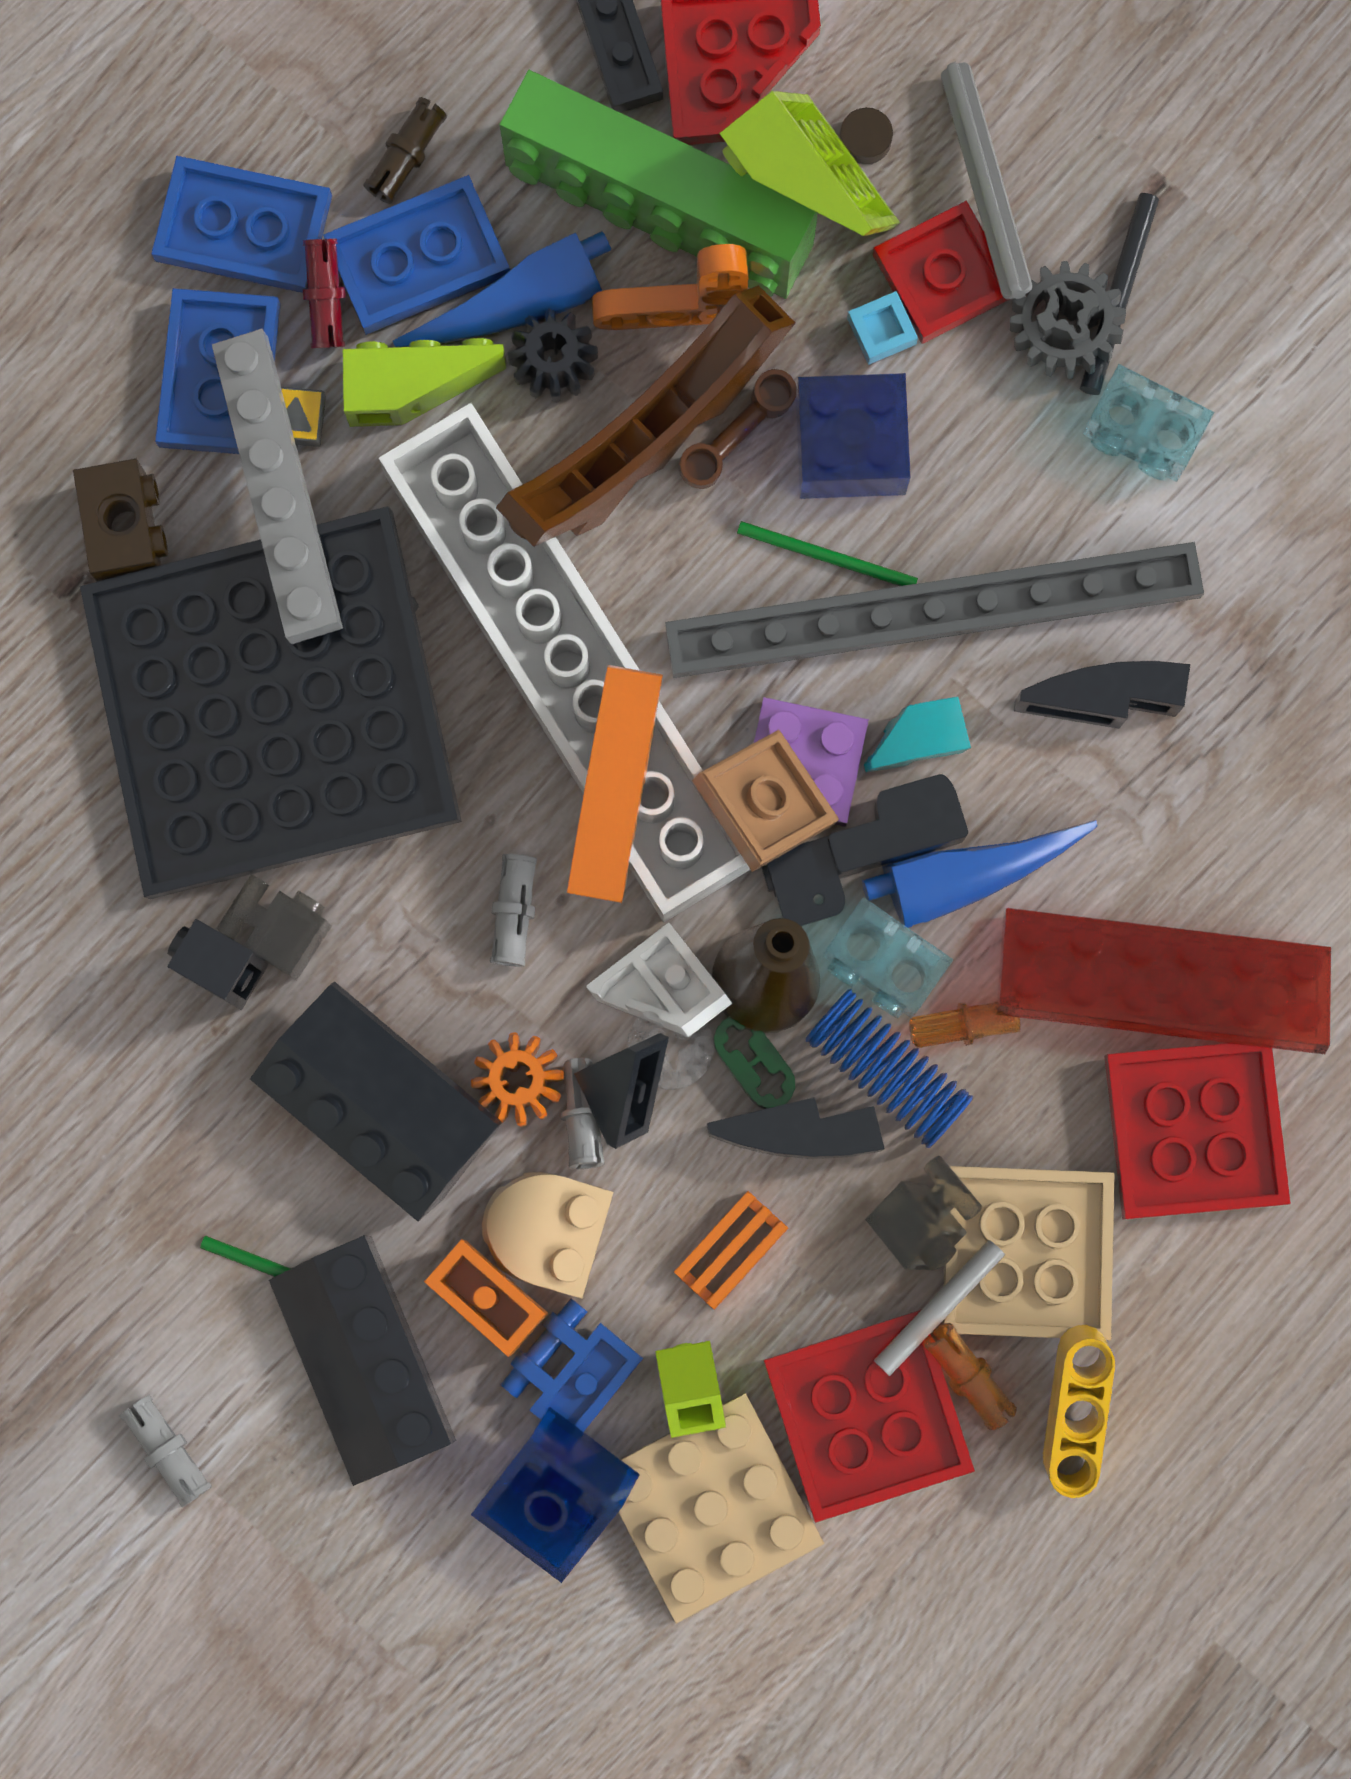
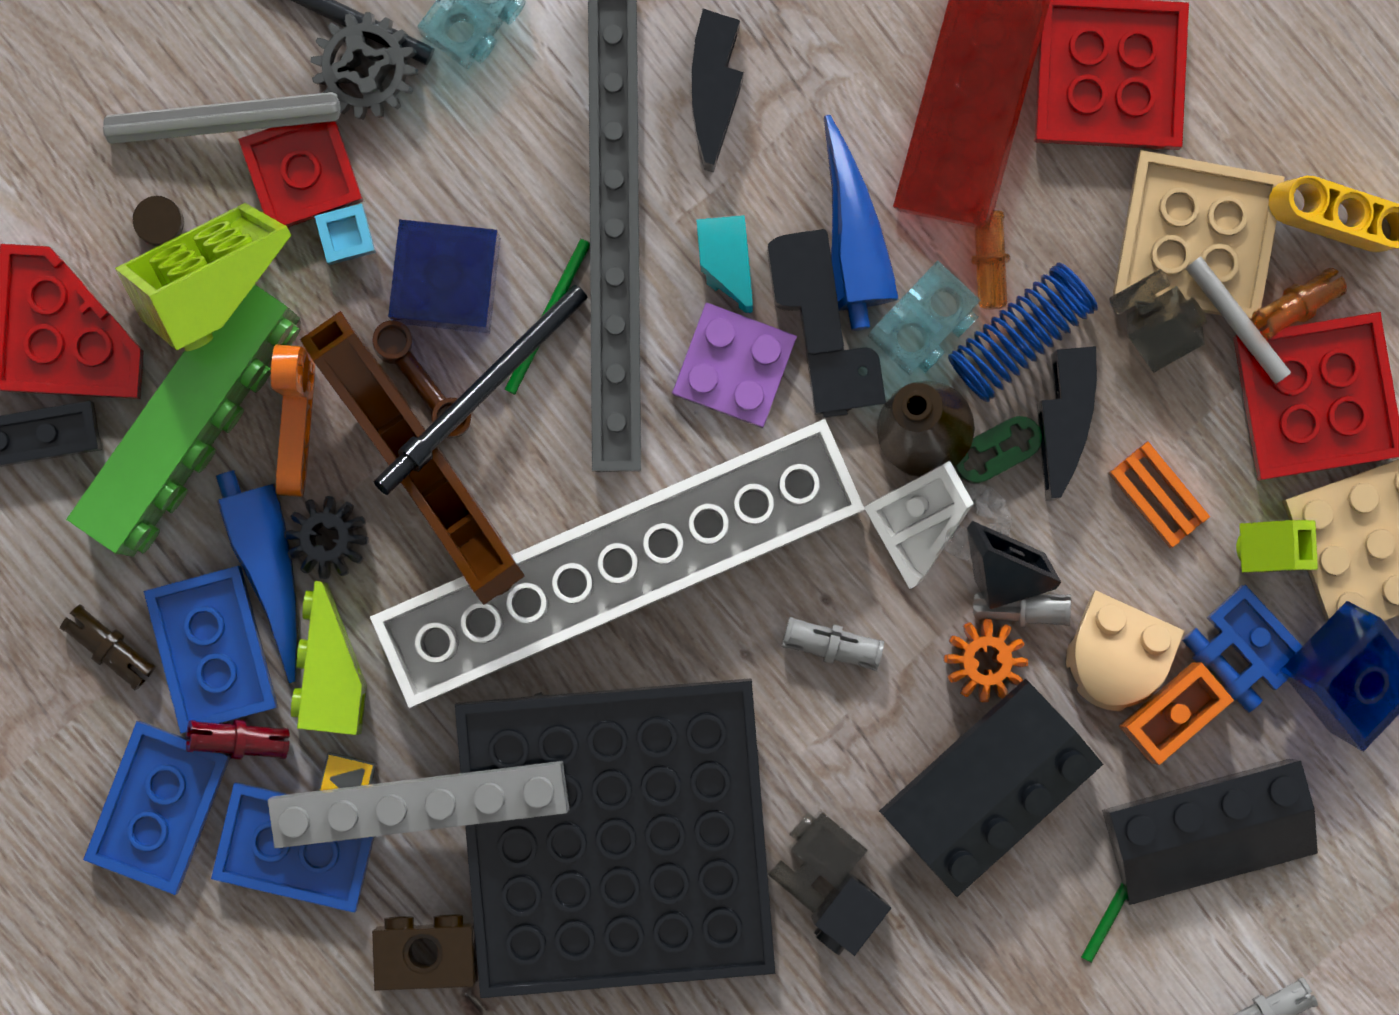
camera: 85 degrees left, 5 degrees up
(614, 783) = (745, 534): orange slope -> none
(653, 422) = (418, 451): none -> black bar
(765, 800) = (773, 403): medium nougat tile -> none

